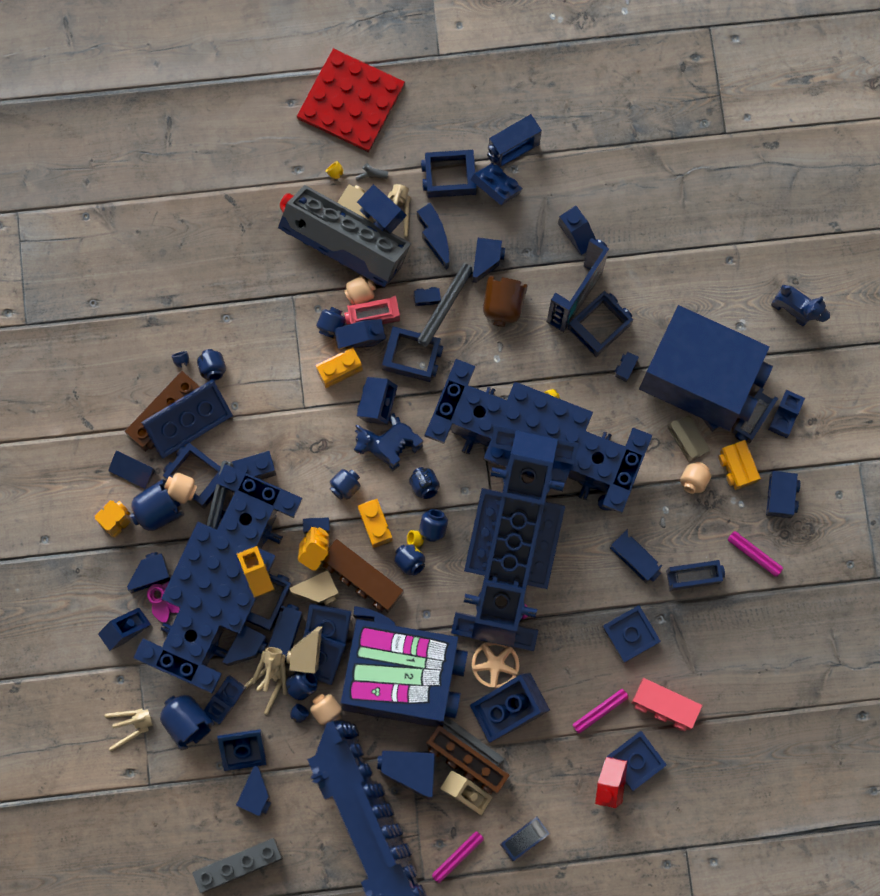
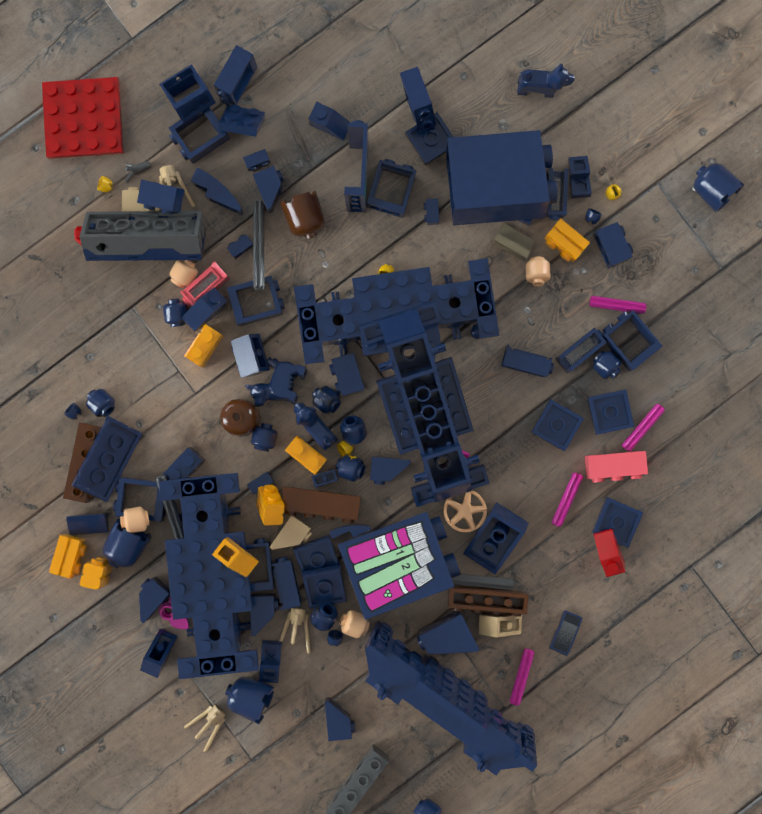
camera: 25 degrees left, 10 degrees up
(95, 488) = (67, 556): none -> light orange brick
(242, 750) = (307, 692): dark blue slope -> none
(272, 658) = (289, 612): tan plant -> none
(306, 653) = (313, 592): tan slope -> none
(333, 452) = (240, 417): none -> reddish brown cylinder
(379, 555) = (324, 478): none -> dark blue piece
(399, 499) = (314, 425): none -> dark blue animal
(443, 580) = (386, 469): none -> dark blue slope
(458, 471) = (347, 375): none -> dark blue brick
(461, 143) = (193, 103): none -> dark blue window
(489, 227) = (256, 160): none -> dark blue piece
(663, 297) = (431, 142): none -> dark blue plate
(672, 255) = (418, 99): none -> dark blue window
(690, 651) = (610, 412): none -> dark blue plate
(712, 603) = (607, 365): none -> dark blue head
(714, 684) = (643, 427): none -> dark pink axle
(751, 615) = (654, 344): none -> dark blue window
(779, 456) = (593, 215): none -> dark blue hinge
(807, 446) = (610, 193): none -> yellow hinge

